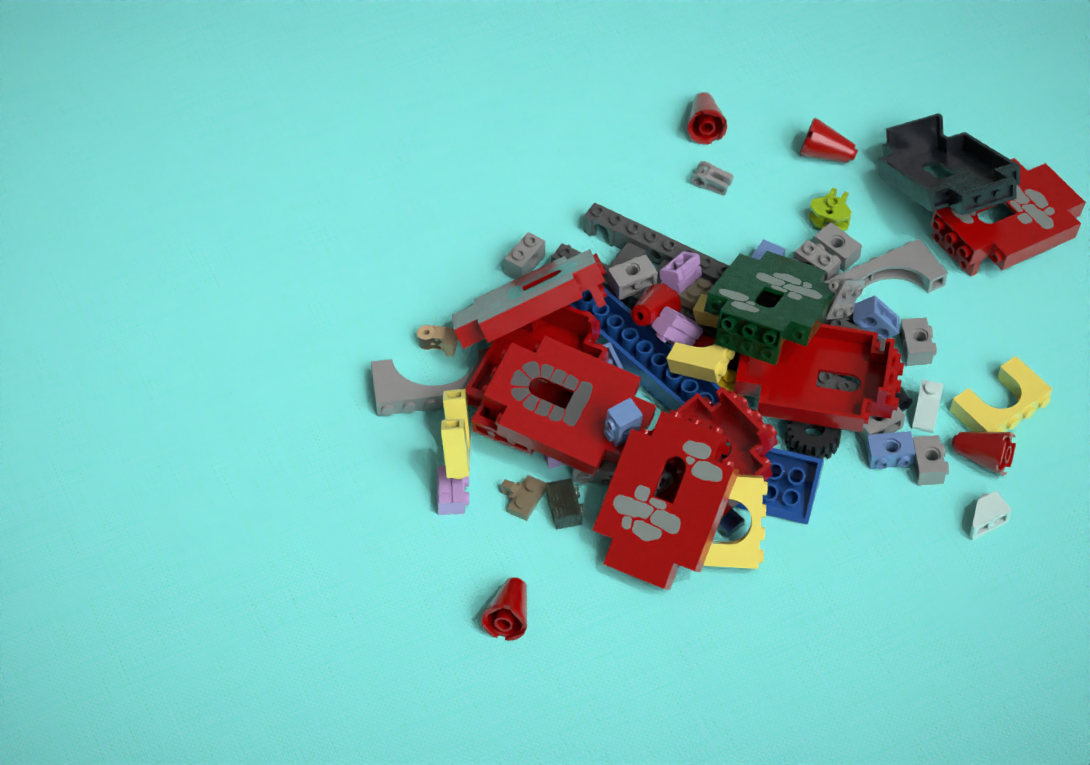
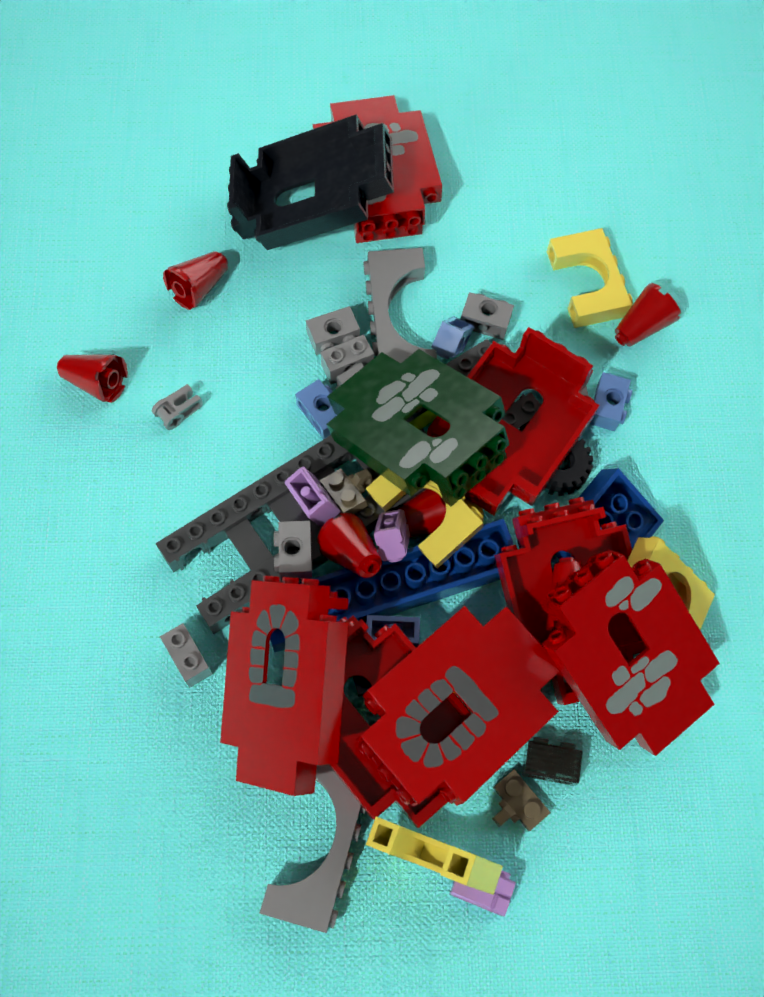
camera: 70 degrees left, 15 degrees up
(438, 338) = (247, 816): tan leg -> none
(507, 611) = (676, 889): red cone -> none
(621, 420) = (535, 656): medium blue brick -> none
(832, 210) = (287, 313): lime hinge -> none
(847, 292) = (430, 343): light grey hinge -> none
(927, 406) = (571, 337): light aqua slope -> none
(928, 471) = (648, 368): light grey brick -> none
(989, 514) = (718, 353): light aqua slope -> none

